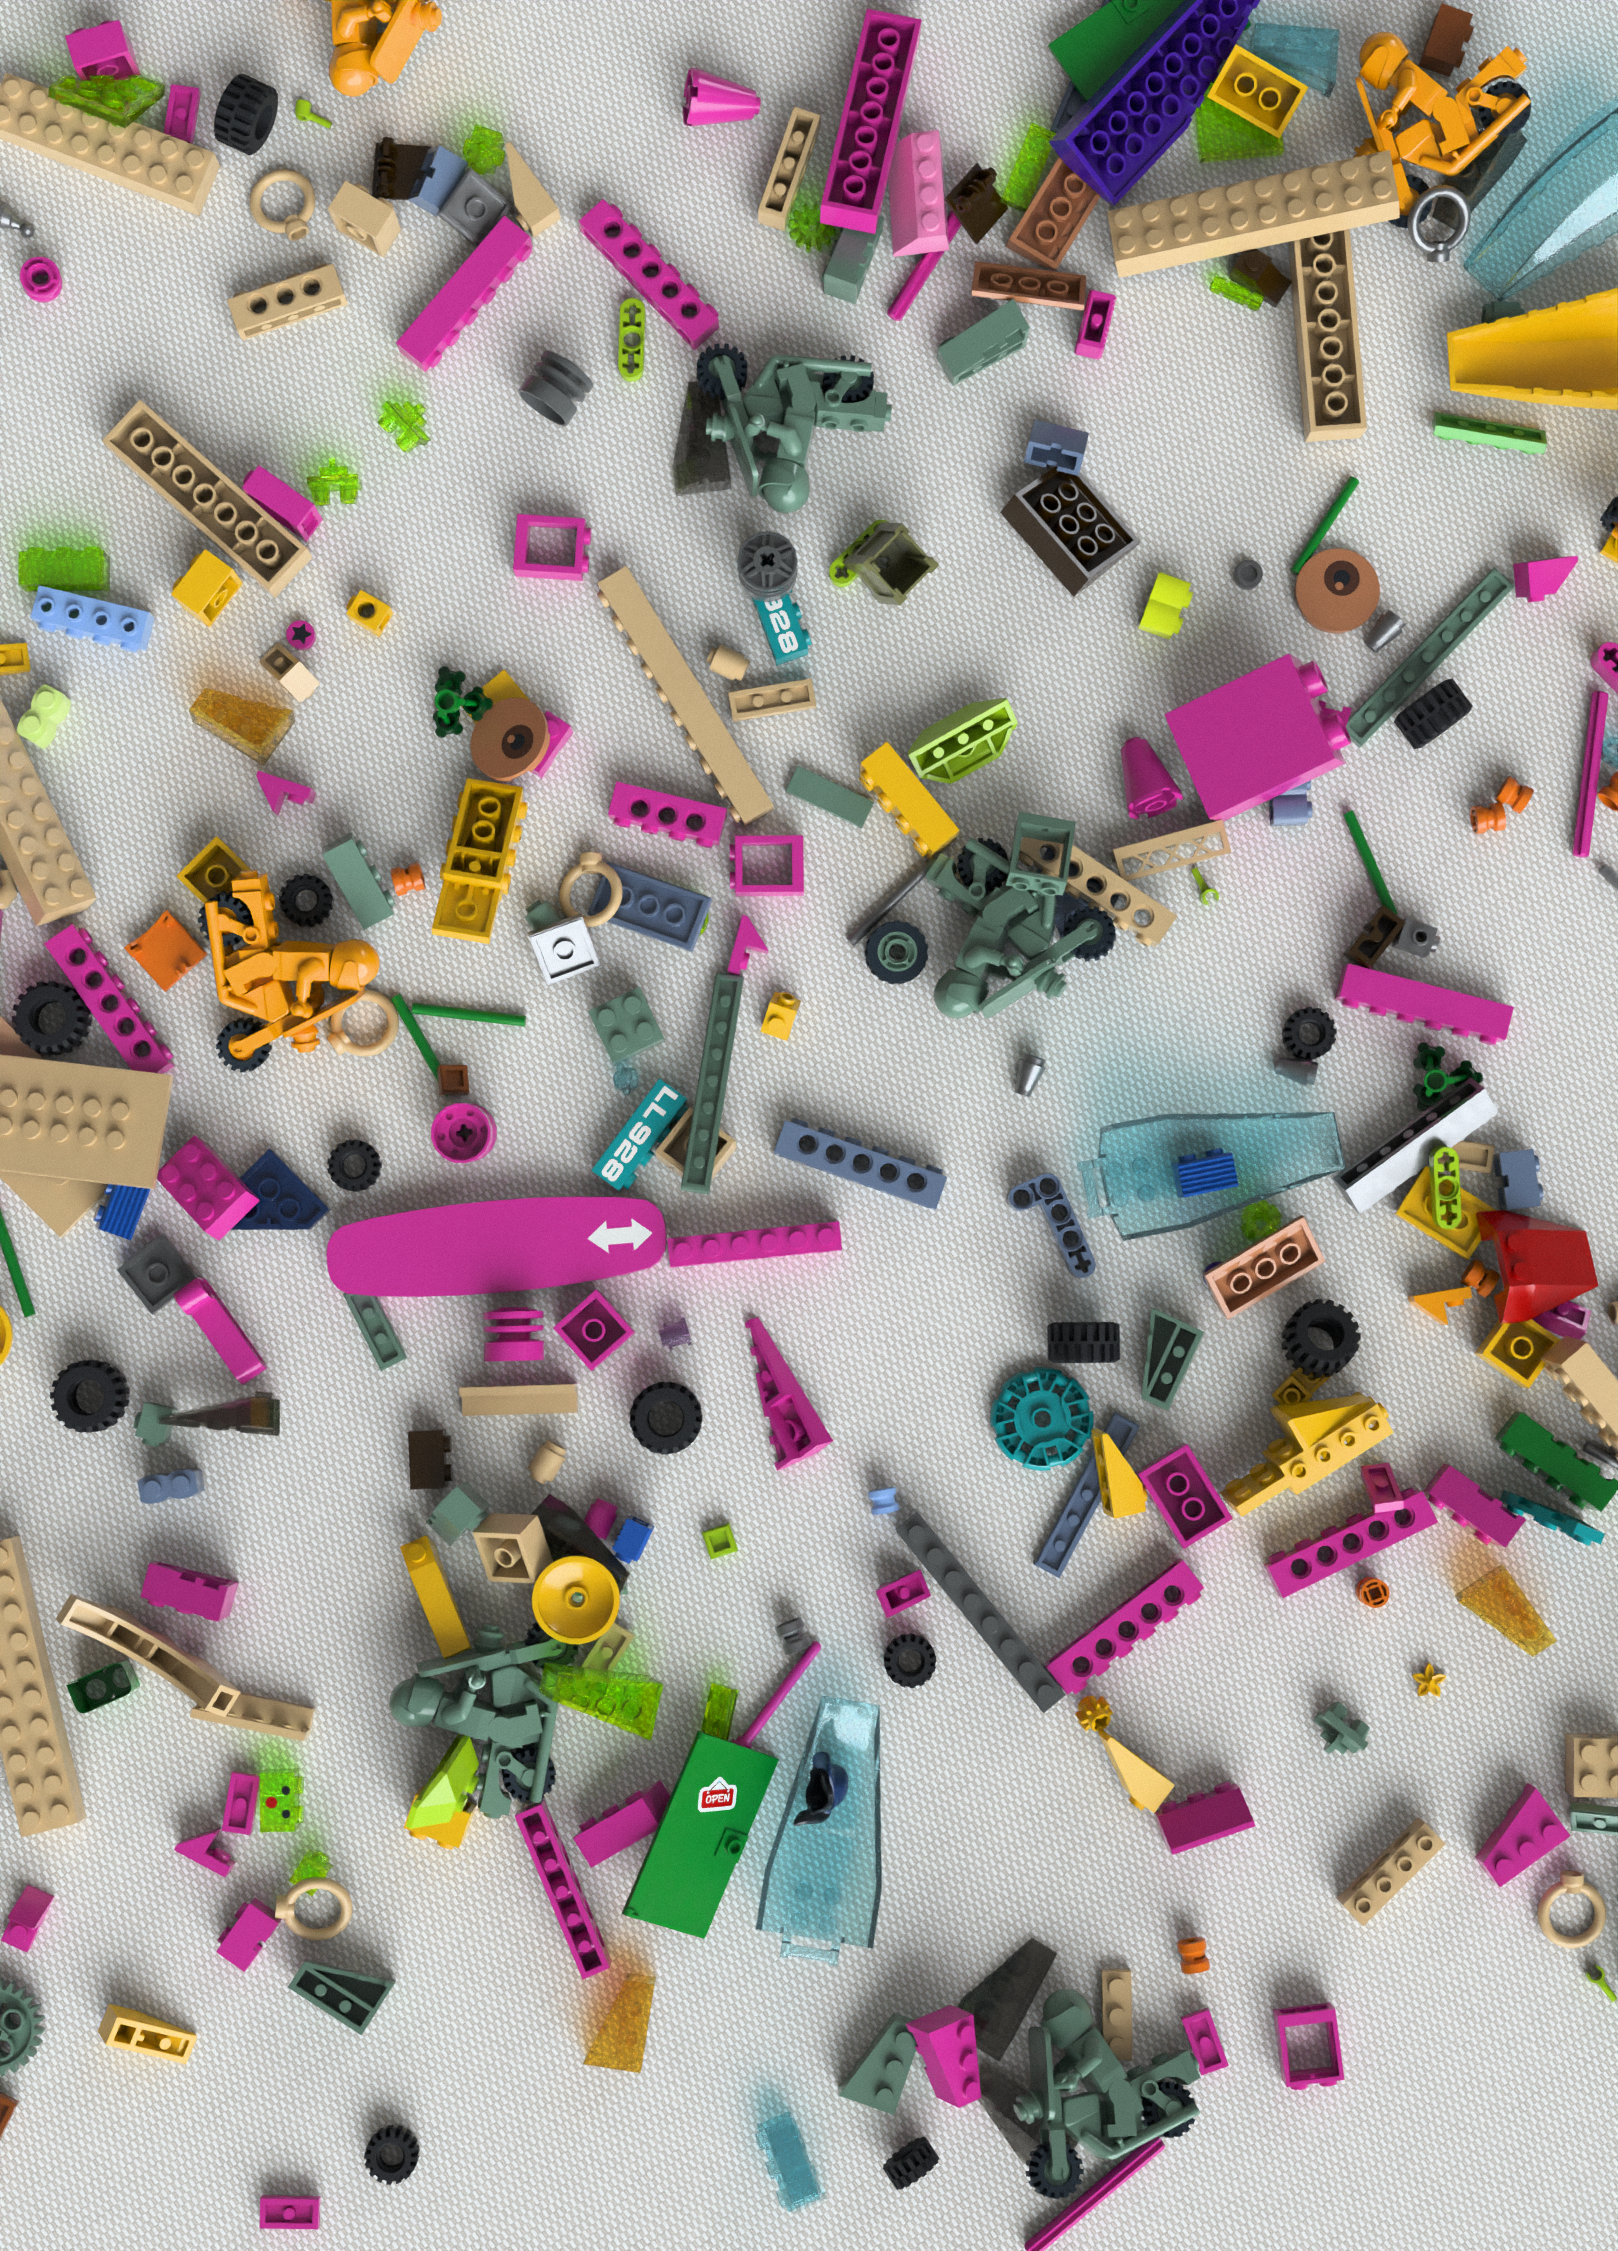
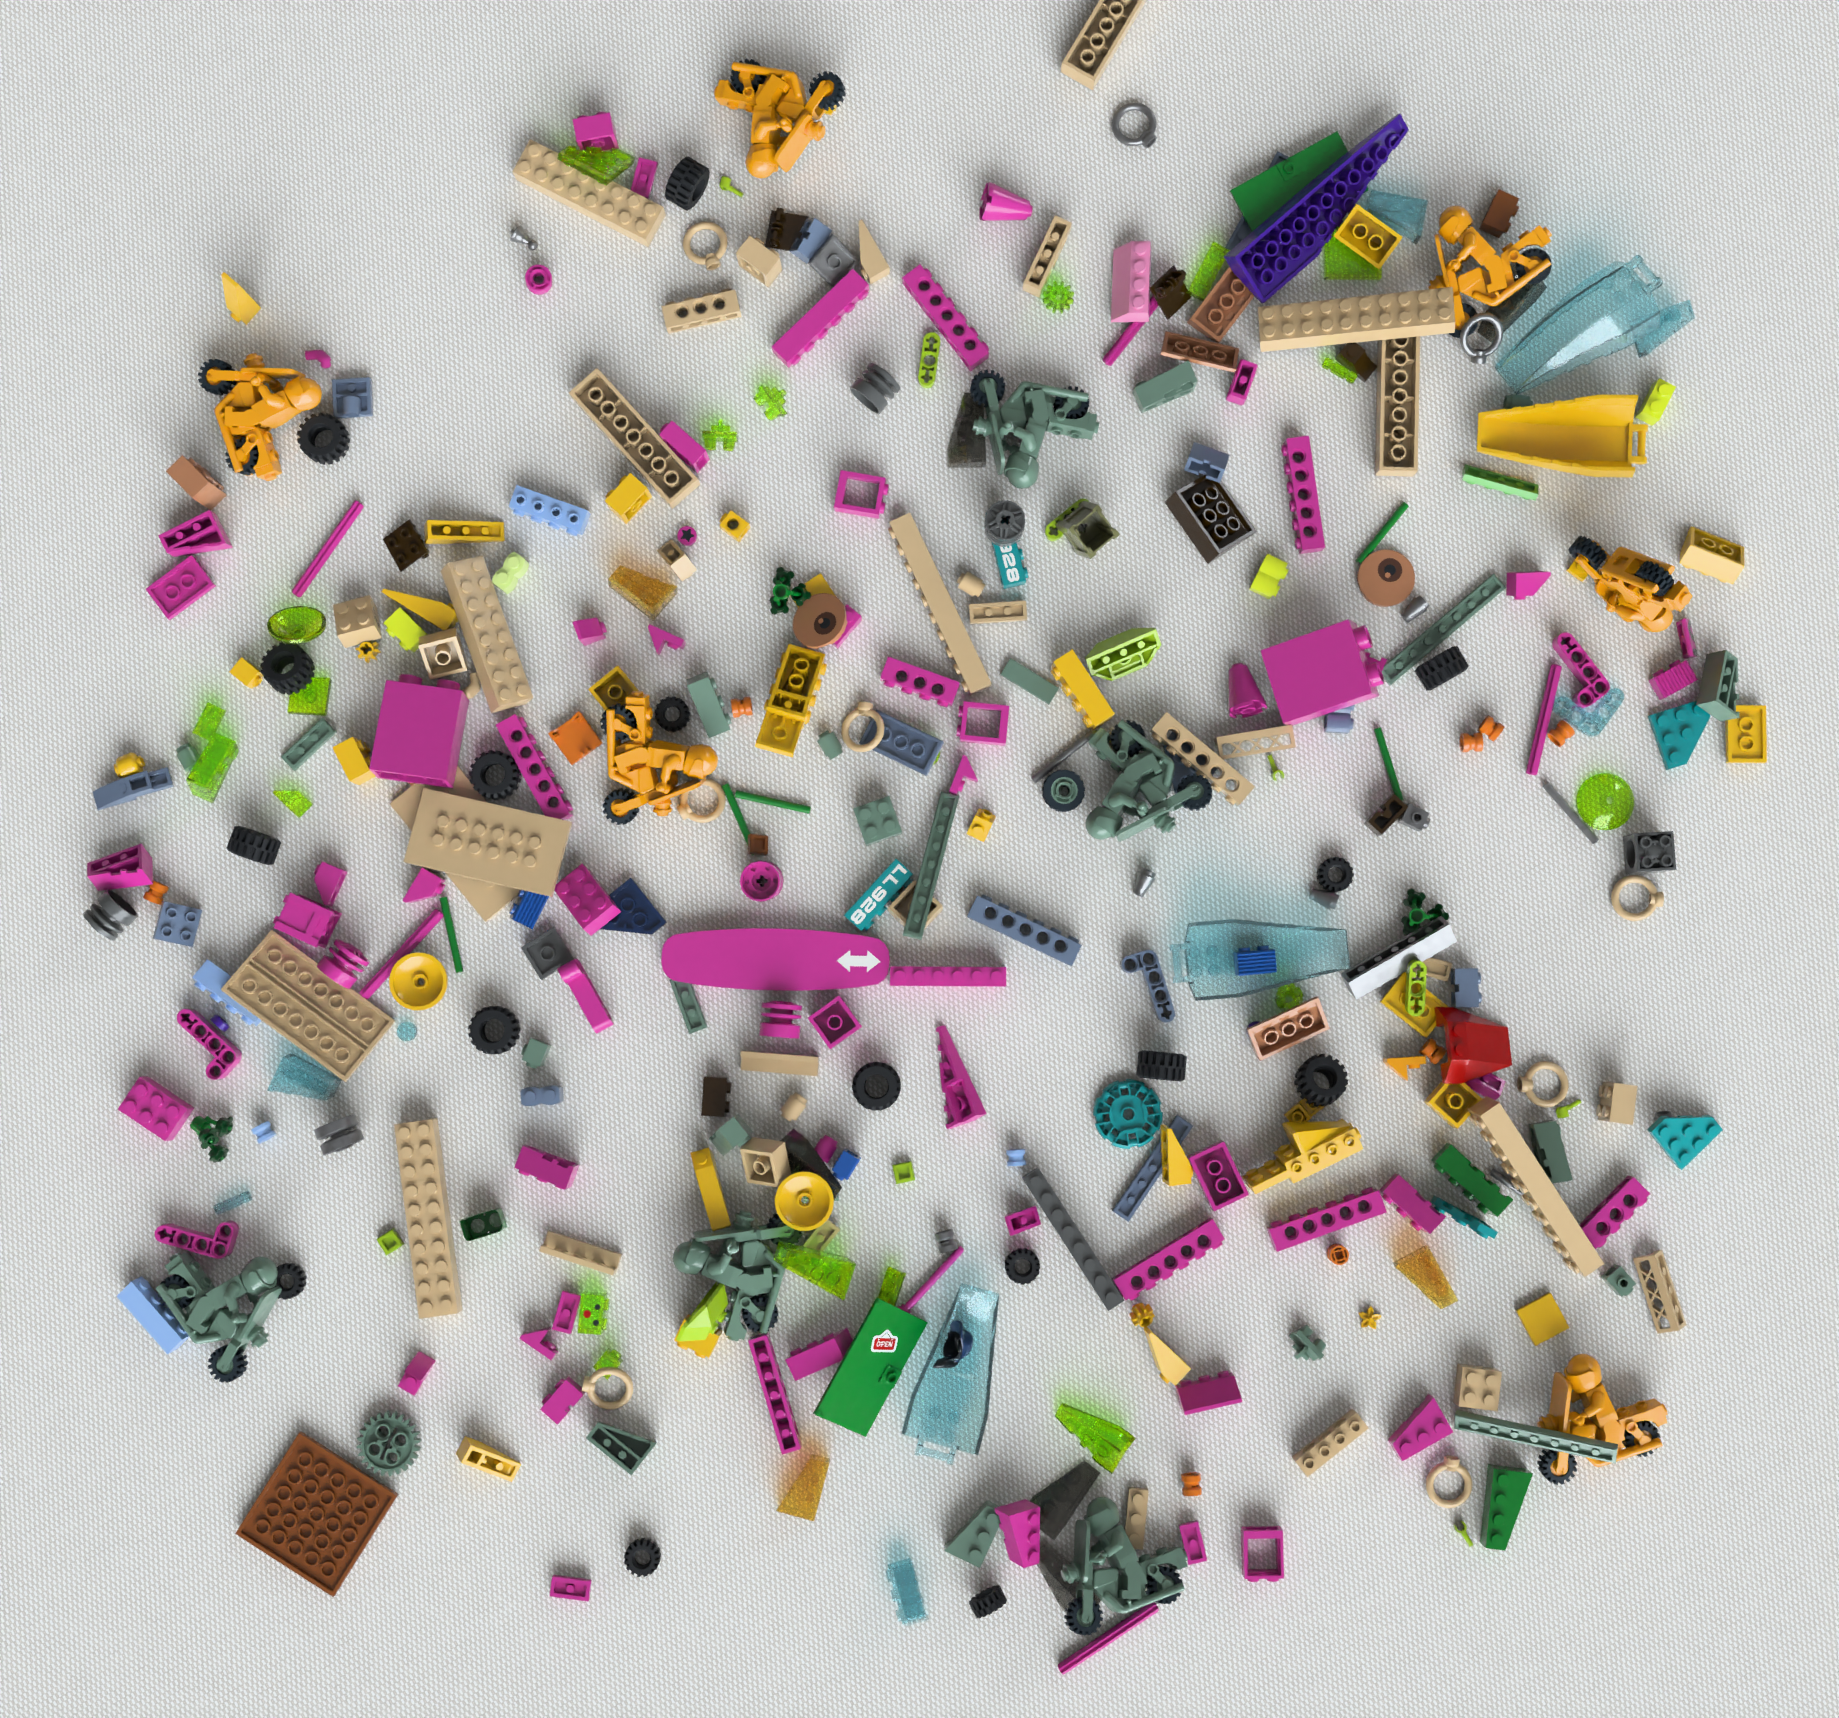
camera: 15 degrees right, 0 degrees up
(64, 569) = (534, 475): clear neon green brick -> none
(153, 1650) = (519, 1204): tan arch -> none
(170, 789) = (590, 630): none -> dark pink slope
(245, 1414) = (597, 1053): clear smoke wedge -> none
(337, 1160) = (697, 895): black tyre -> none
(484, 150) = (844, 223): clear neon green brick -> none
(564, 949) = (841, 765): tile -> none
(625, 1079) = (873, 856): clear light blue plate -> none
(675, 1334) = (888, 1030): clear purple brick -> none
(850, 262) = (1083, 318): sand green wedge -> none
(870, 121) = (1105, 230): dark pink brick -> none
(1044, 829) = (1172, 719): sand green window -> none
(1055, 1902) = (1103, 1439): none -> clear neon green wedge
(1168, 1358) = (1217, 1082): sand green wedge -> none
(1192, 410) = (1301, 447): none -> dark pink brick
(1247, 574) = (1326, 561): flat silver tile -> none
(1382, 1487) = (1351, 1184): dark pink plate -> none
(1423, 1003) = (1415, 862): dark pink brick -> none

